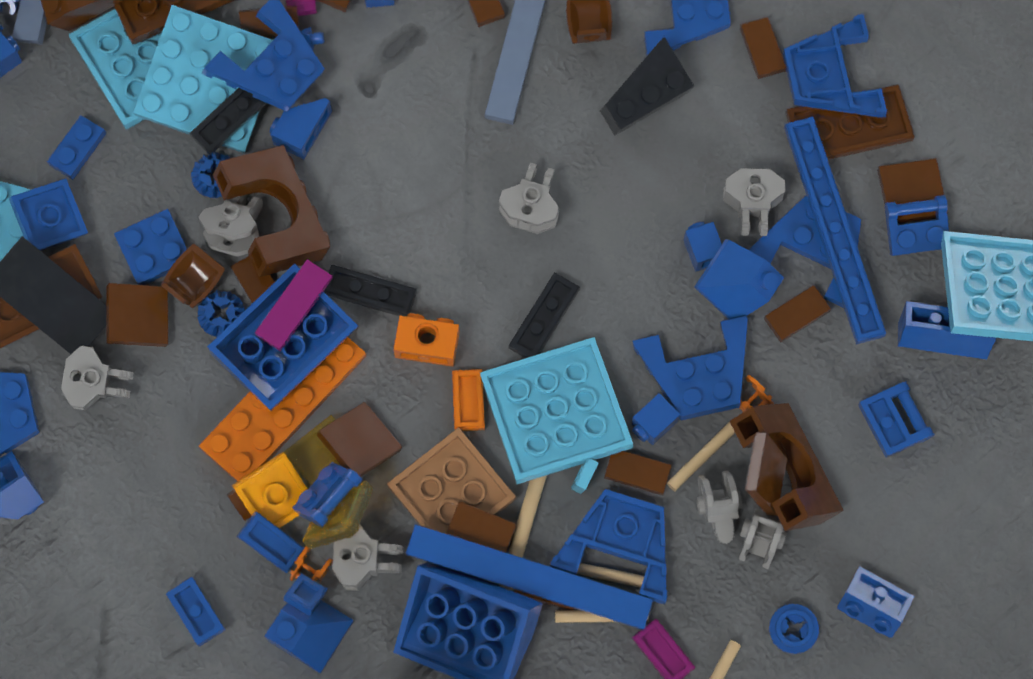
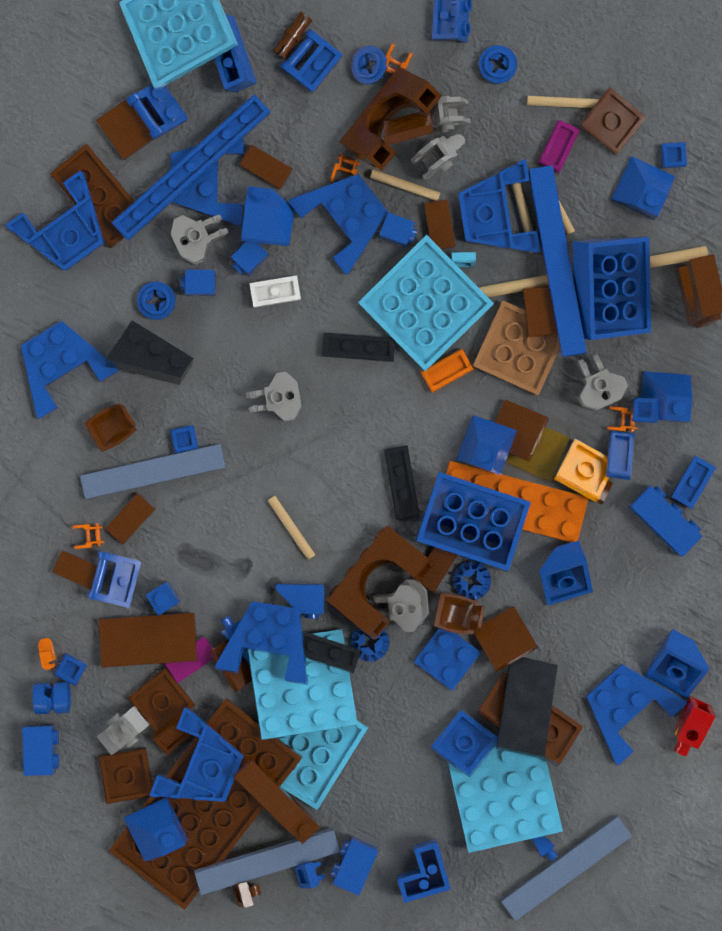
camera: 120 degrees left, 15 degrees up
(76, 147) = (399, 756): blue plate -> none
(93, 380) = (567, 642): light grey hinge -> none
(168, 557) = (666, 520): none -> blue brick
(172, 415) = (565, 574): none -> blue slope
(293, 305) = (449, 523): magenta tile -> none
(326, 493) = (570, 430): blue plate -> none
(343, 520) = (582, 414): clear yellow plate -> none
(359, 397) = (486, 445): none -> blue slope
(383, 153) = (291, 527): none -> tan bar
(440, 351) = (419, 406): orange brick -> none
(537, 89) = (184, 439): none -> blue tile
(651, 256) = (275, 291): none -> white plate
(696, 118) = (147, 294): none -> blue gear
(700, 180) = (199, 282): none -> blue brick
(762, 48) = (68, 288): reddish brown tile -> none
(858, 507) = (404, 65): none -> orange piece
(870, 475) = (361, 60): none -> blue gear
(935, 412) = (292, 35): none -> reddish brown pin

